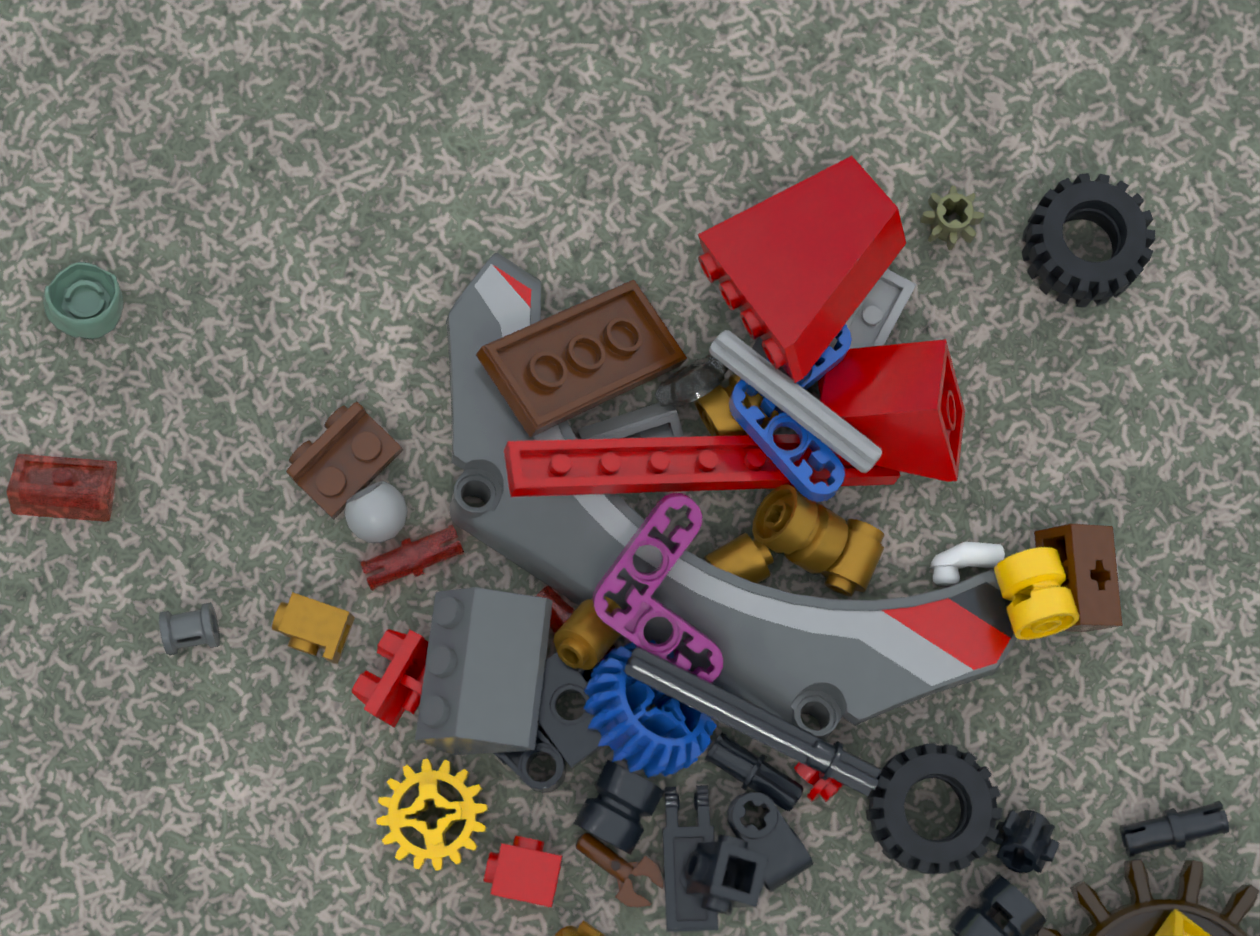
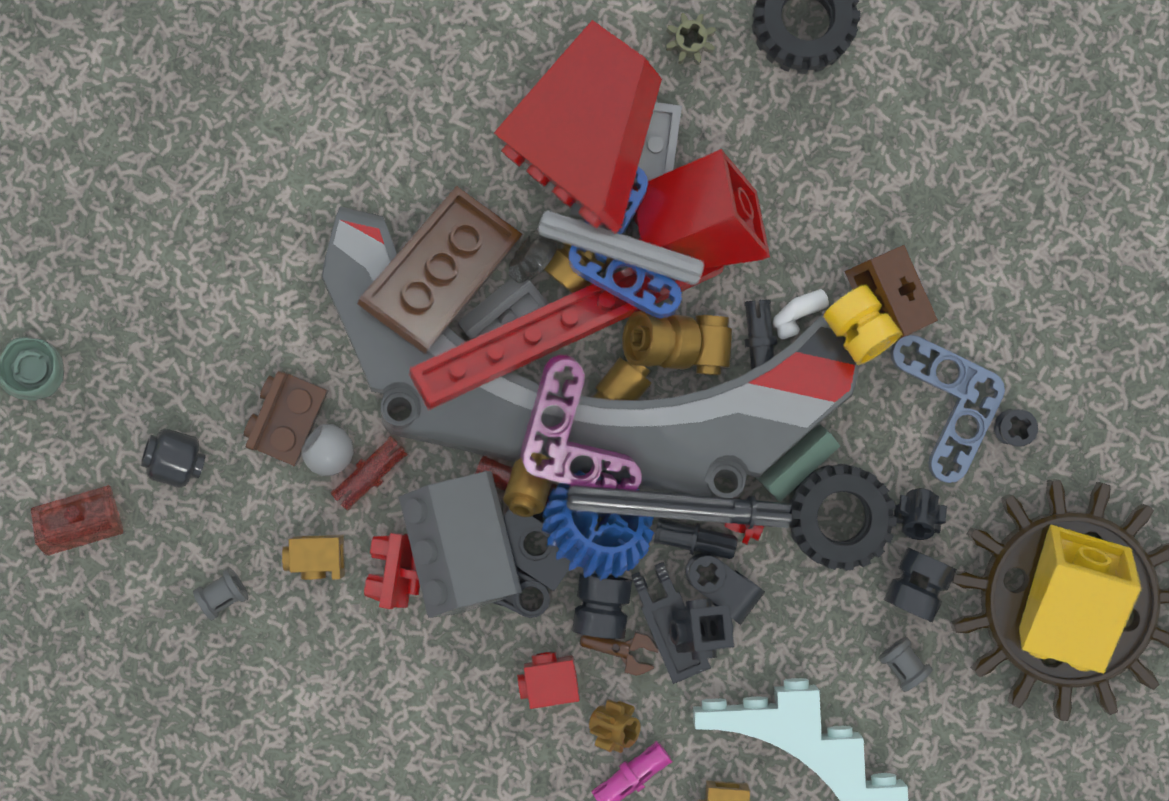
camera: 20 degrees left, 10 degrees up
(199, 456) = (172, 458): none -> black head
(430, 790) = (471, 680): yellow gear -> none
(905, 727) = (799, 462): none -> sand green slope
(912, 570) = (759, 333): none -> black pin
(1122, 719) = (961, 388): none -> sand blue beam
(1174, 829) = (1030, 460): black pin -> none
(1177, 796) = (1028, 429): none -> black bush

